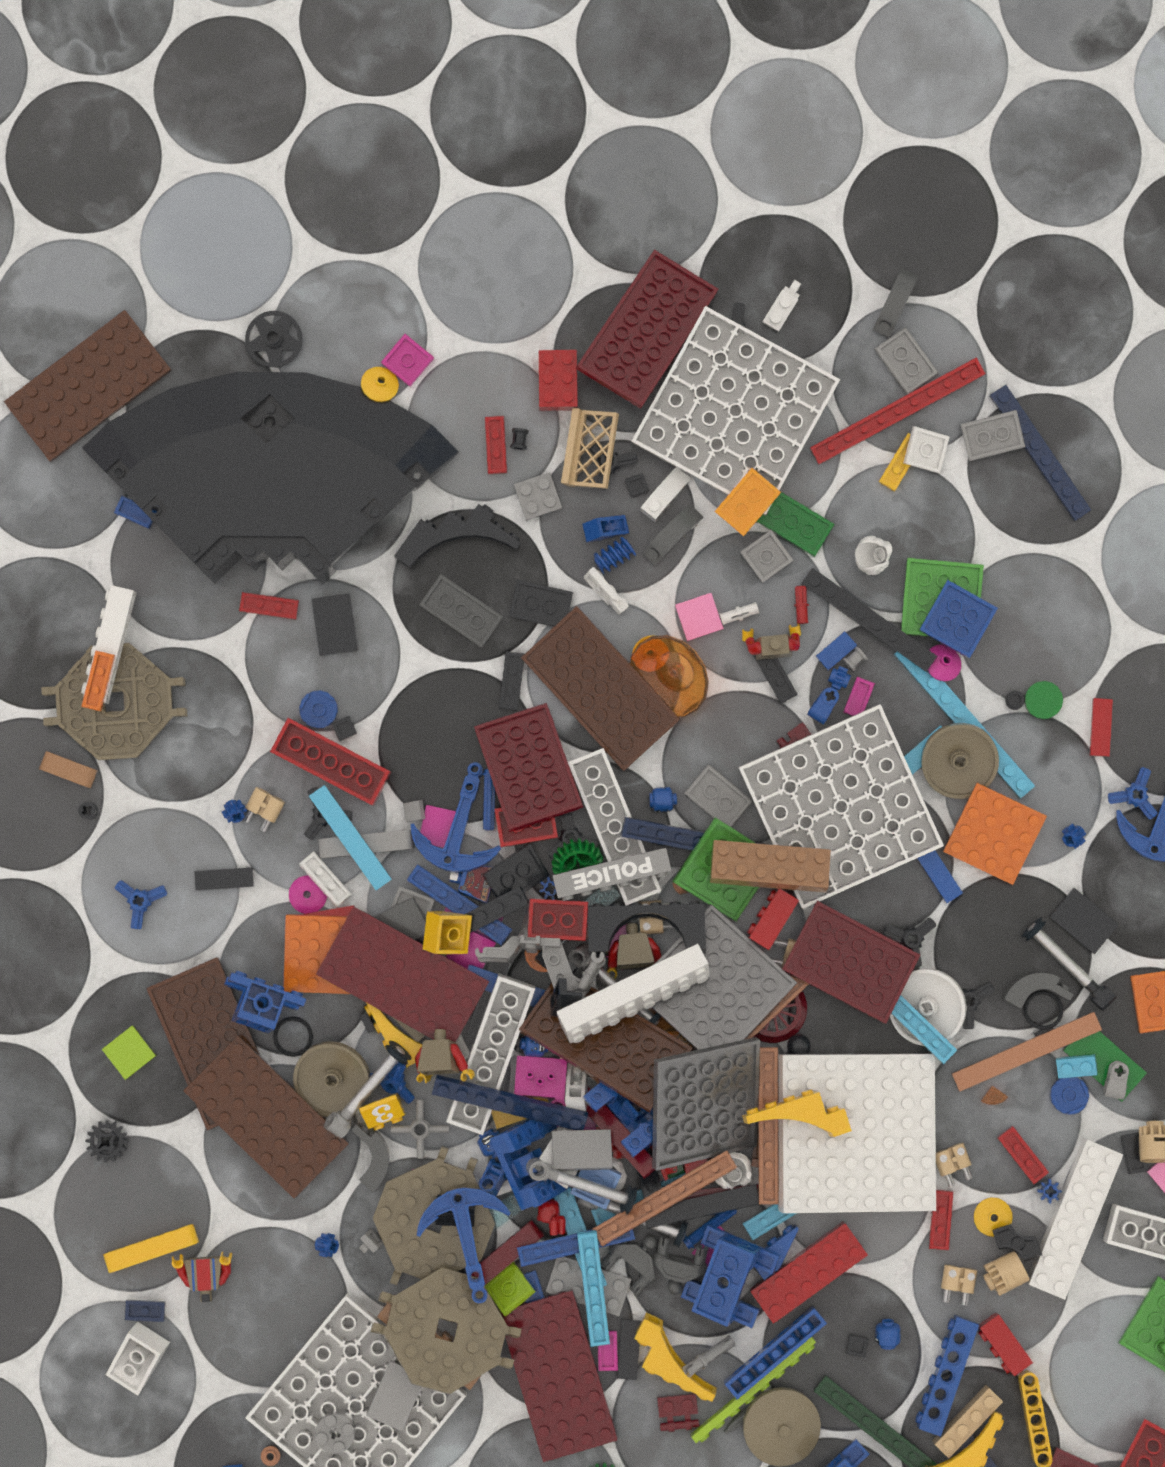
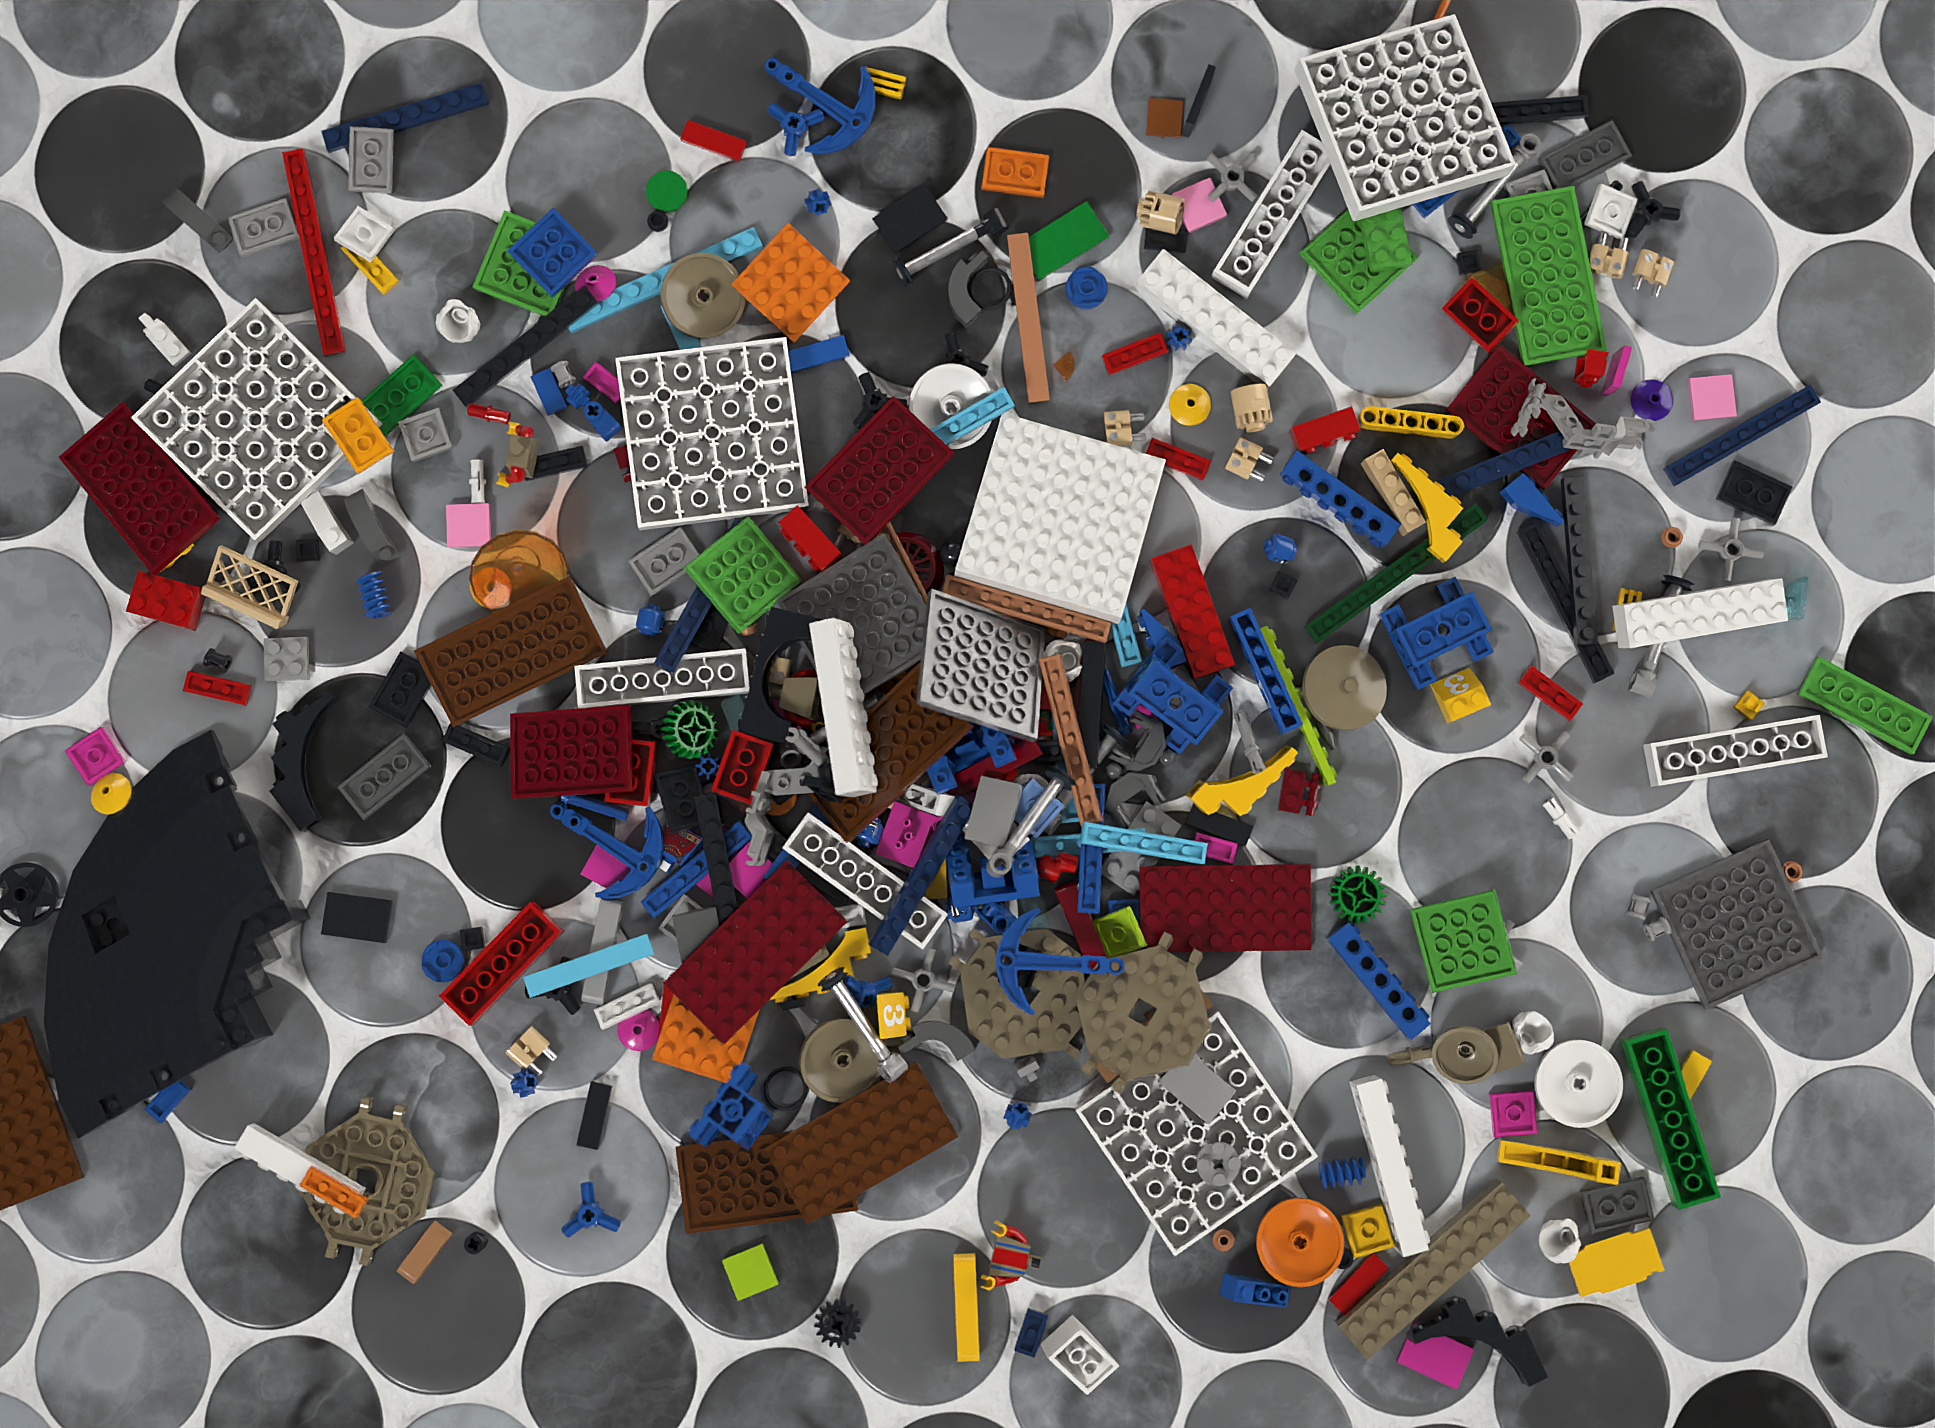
camera: 75 degrees left, 0 degrees up
(269, 605) = (314, 982): red tile -> none
(414, 811) = (583, 888): light grey tile -> none
(441, 1057) = (851, 935): dark tan torso -> none
(447, 932) = (720, 889): yellow slope -> none
(605, 528) = (341, 596): blue arch -> none
(605, 590) = (409, 616): white hinge -> none
(611, 873) = (709, 694): light grey brick -> none
(770, 866) = (751, 524): medium nougat brick -> none
(803, 1108) = (1018, 560): yellow arch -> none
(1025, 1246) = (1229, 378): black tile -> none
(1076, 1066) = (1058, 270): medium azure plate -> none
(1115, 1083) = (1087, 234): light grey piece -> none

